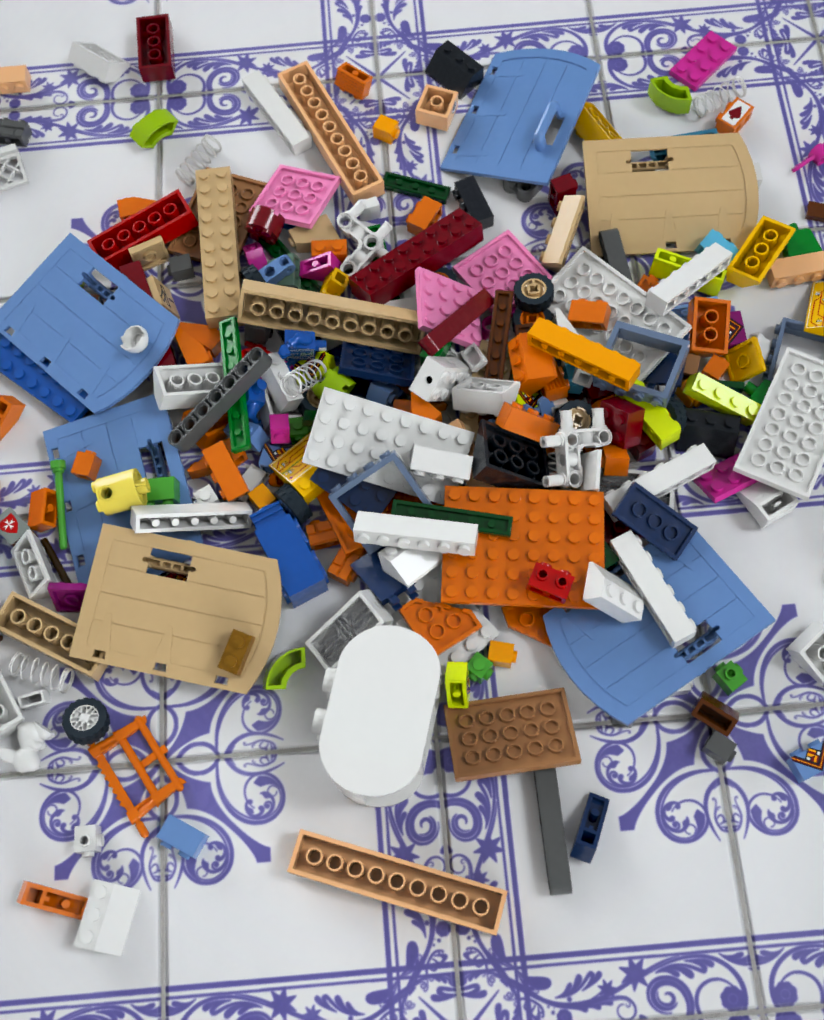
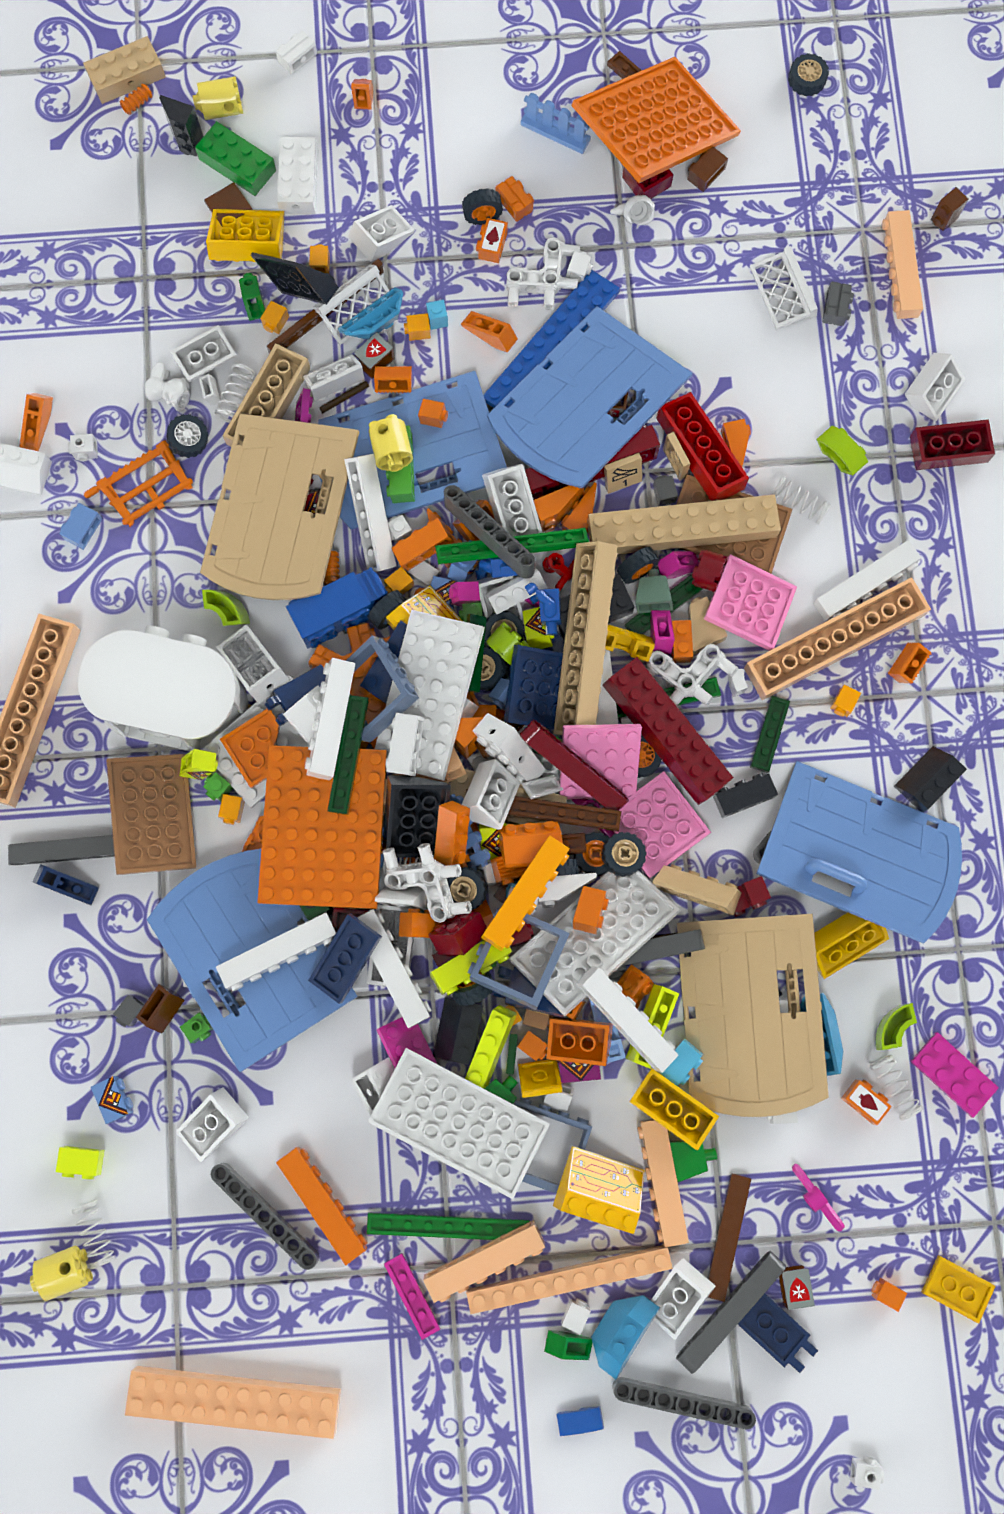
camera: 85 degrees right, 10 degrees up
(58, 468) = (432, 388): bright green piece -> none
(135, 339) = (557, 444): white hair -> none
(236, 652) = (231, 559): pearl gold brick -> none
(277, 269) = (648, 584): medium blue leg -> none
(305, 369) = (534, 627): white piece -> none
(425, 214) = (728, 742): orange brick -> none
(436, 107) = (873, 756): light nougat brick -> none
(550, 582) = (278, 847): red brick -> none
(612, 595) = (268, 909): white slope -> none

